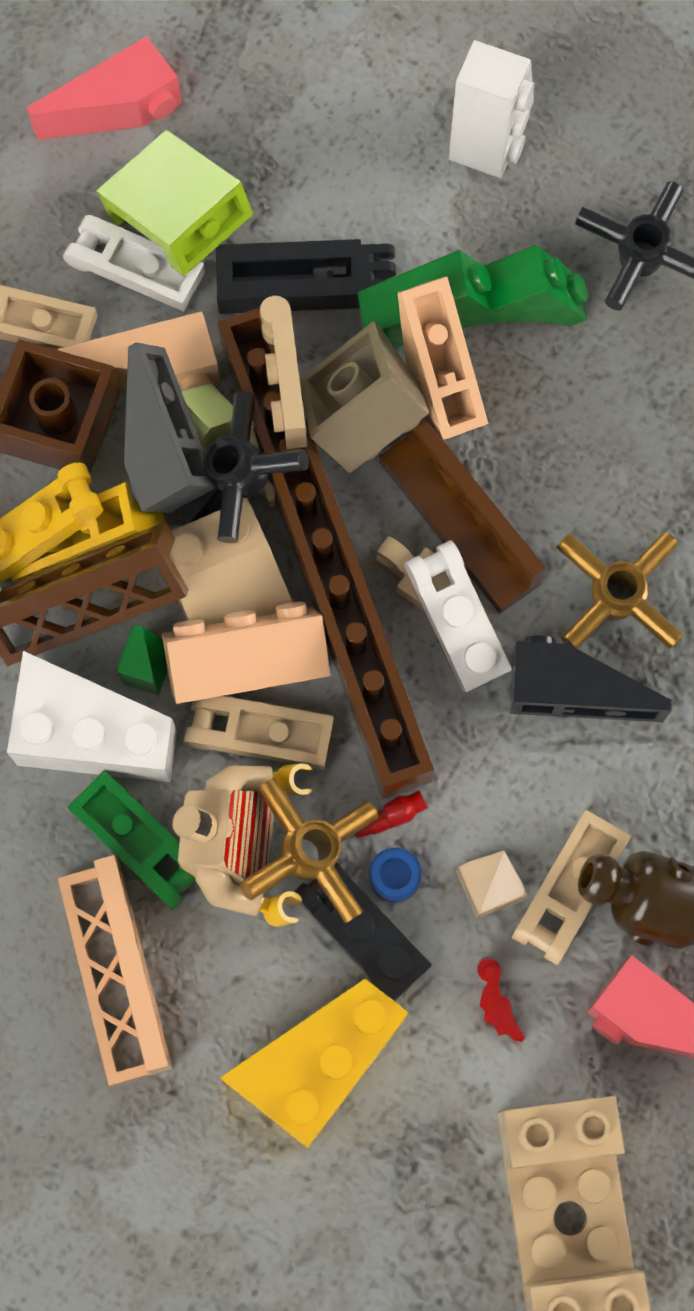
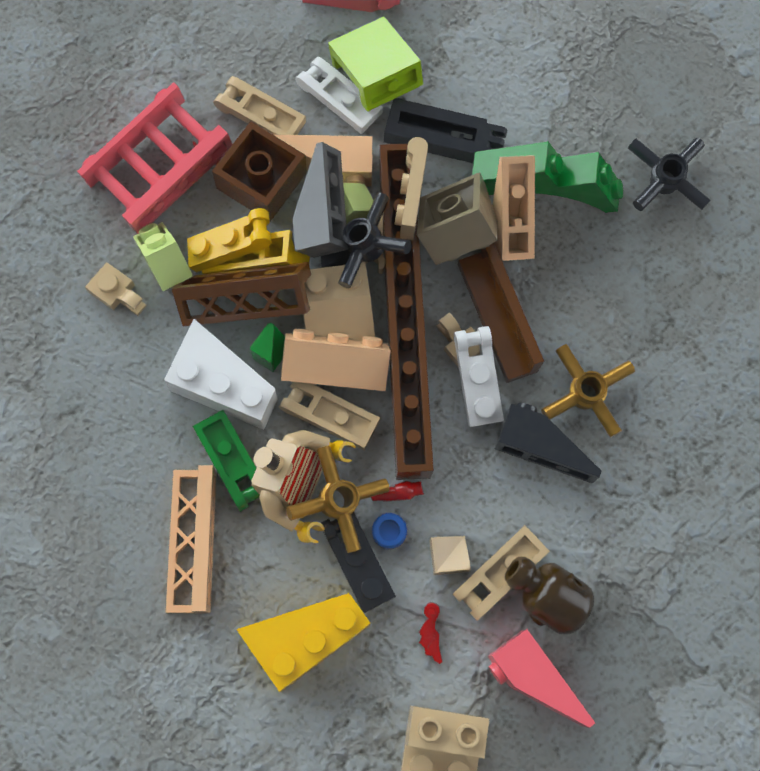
camera: 10 degrees right, 0 degrees up
(490, 109) = (595, 58): white wedge -> none

